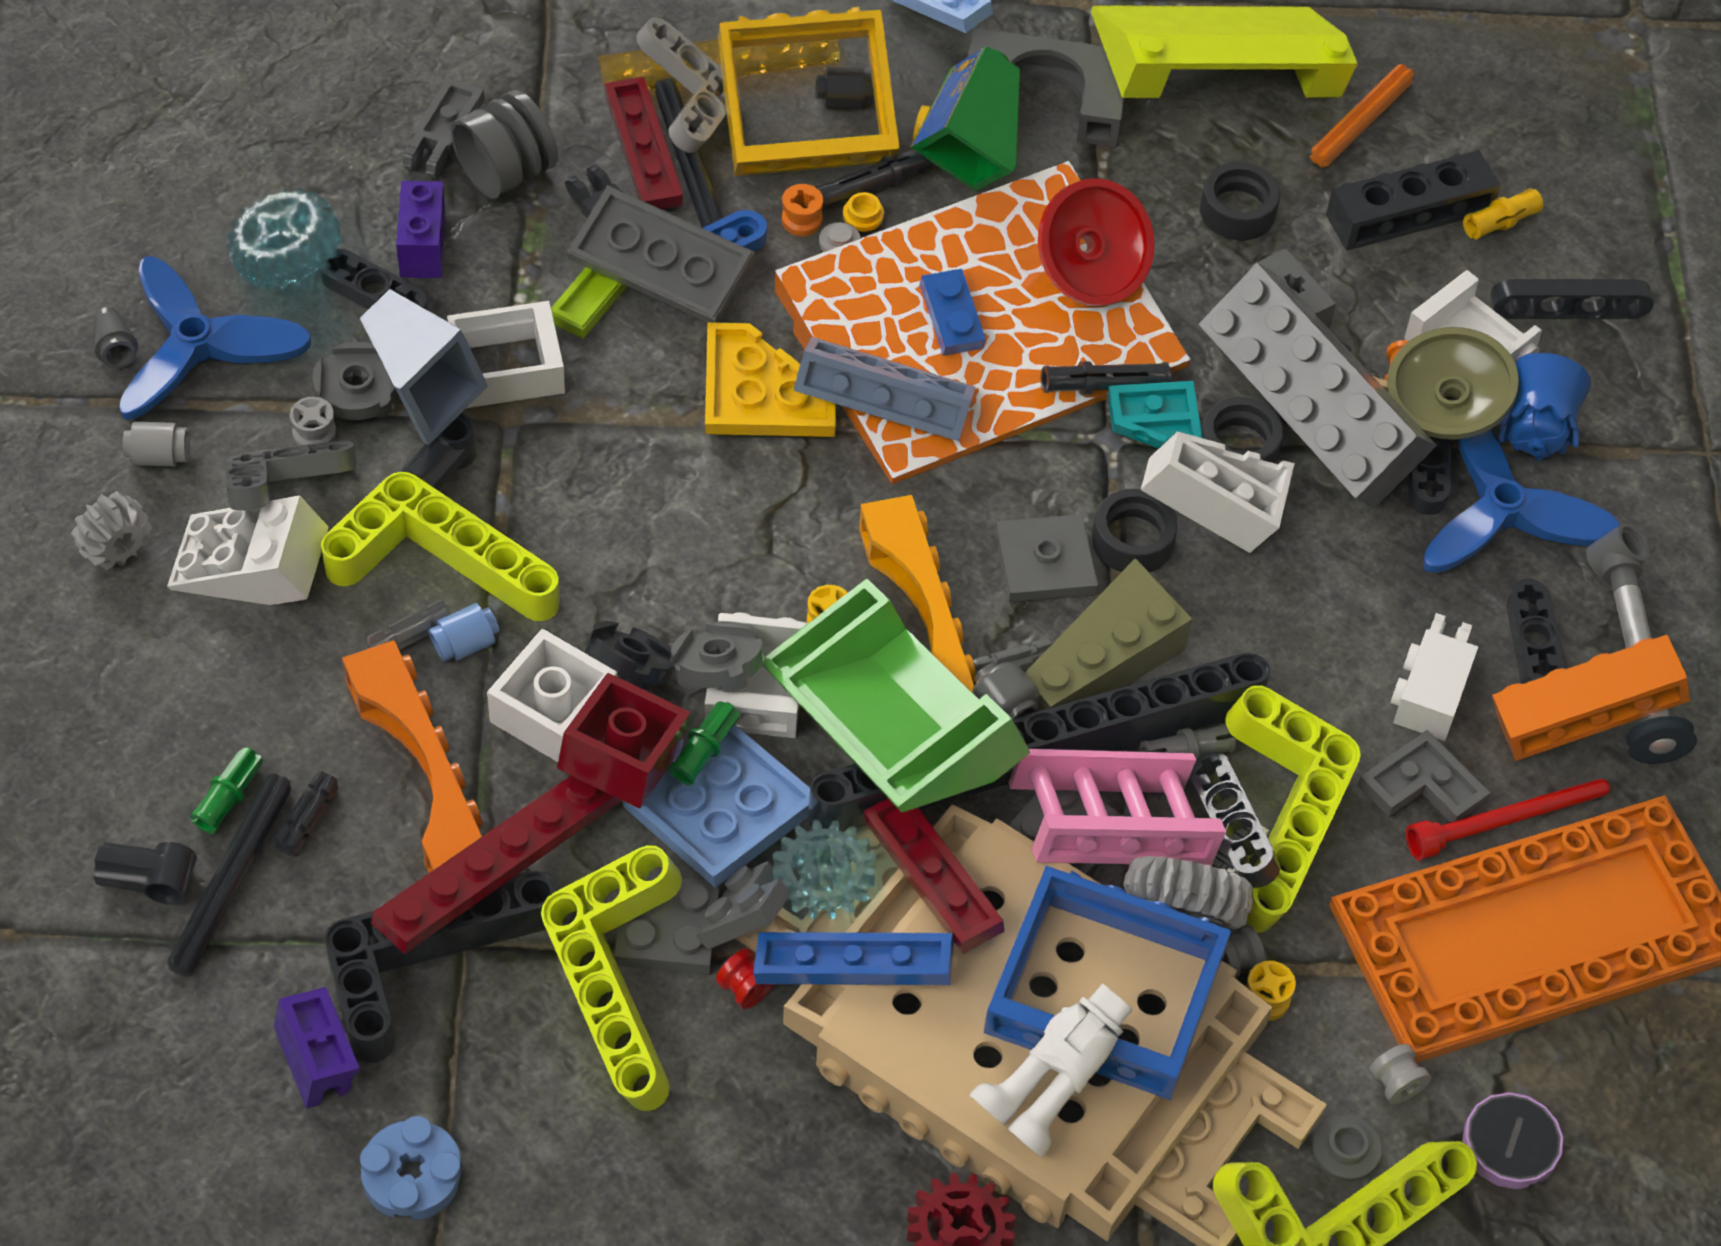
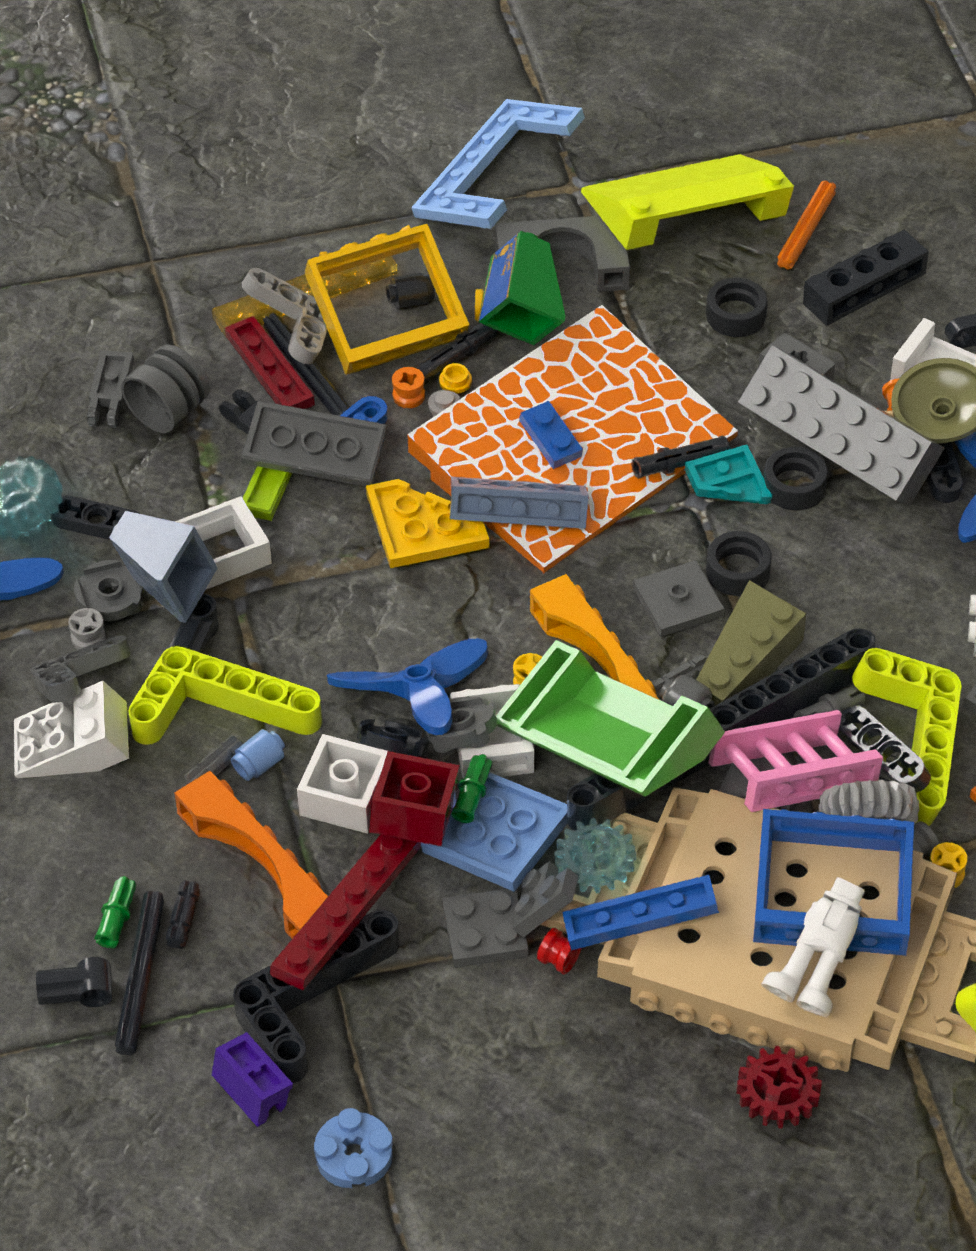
camera: 10 degrees left, 5 degrees down
(421, 229) = (121, 467): dark purple brick -> none
(602, 973) = (451, 974): neon yellow beam -> none
(692, 590) = (423, 682): none -> blue piece
(935, 874) = (680, 836): dark red plate -> none
(1116, 239) = (658, 356): red dish -> none
(1219, 488) = (795, 516): white wedge -> none
(1503, 213) = (935, 272): yellow pin -> none

